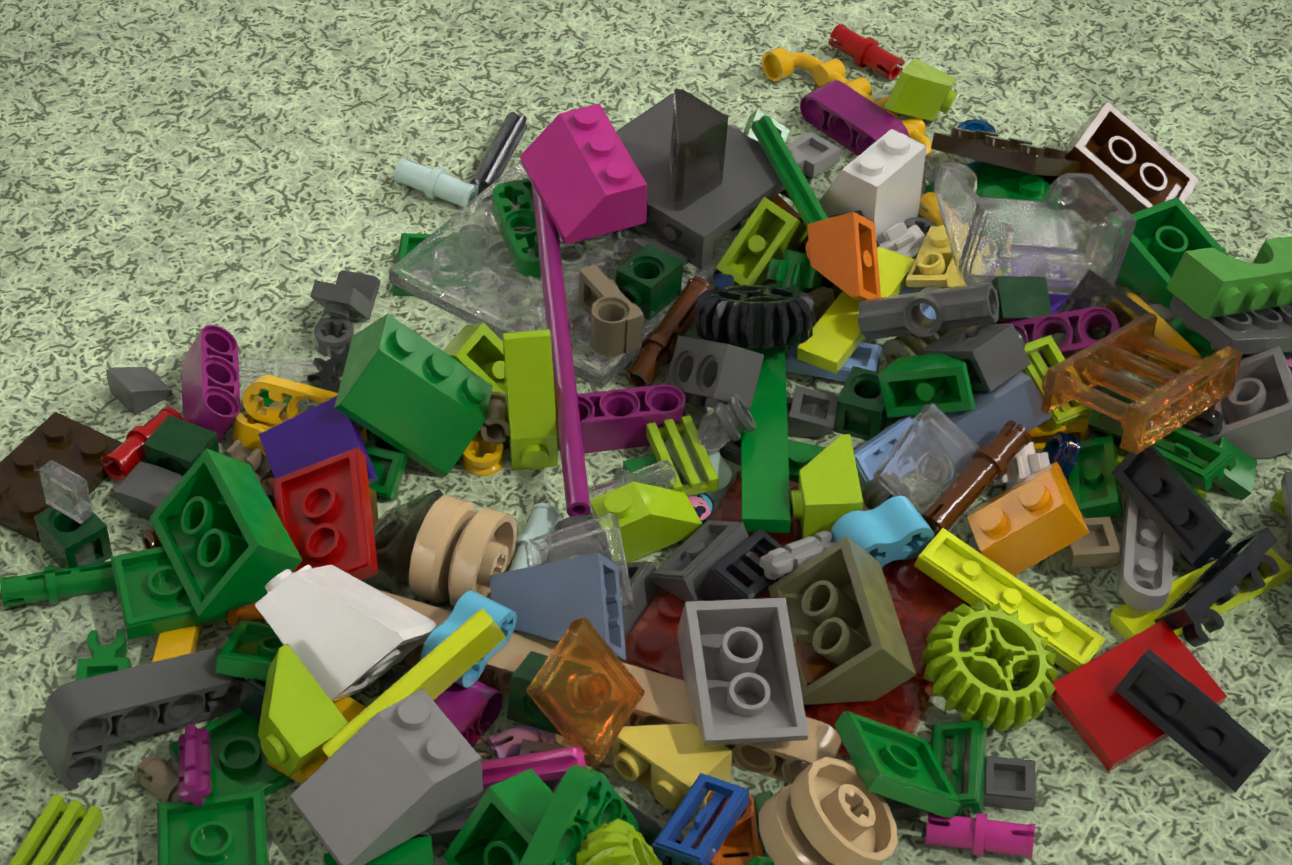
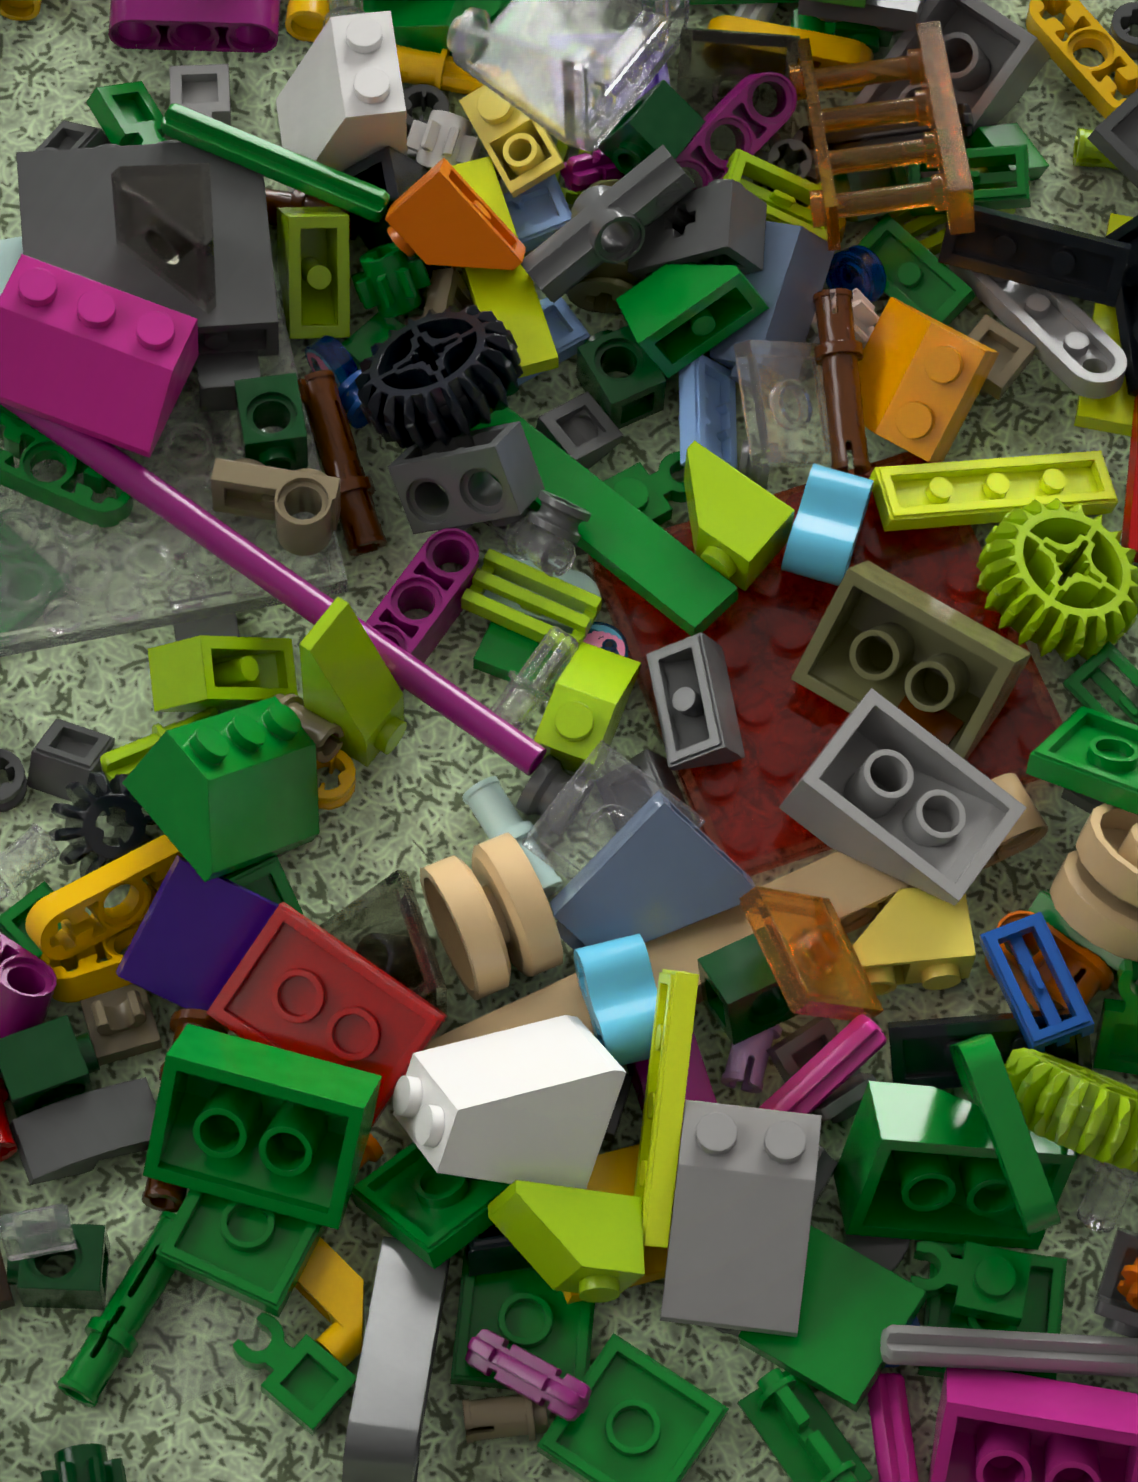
camera: 50 degrees left, 20 degrees up
(739, 573) = (754, 719): black slope -> none
(795, 554) = (788, 619): light grey axle -> none

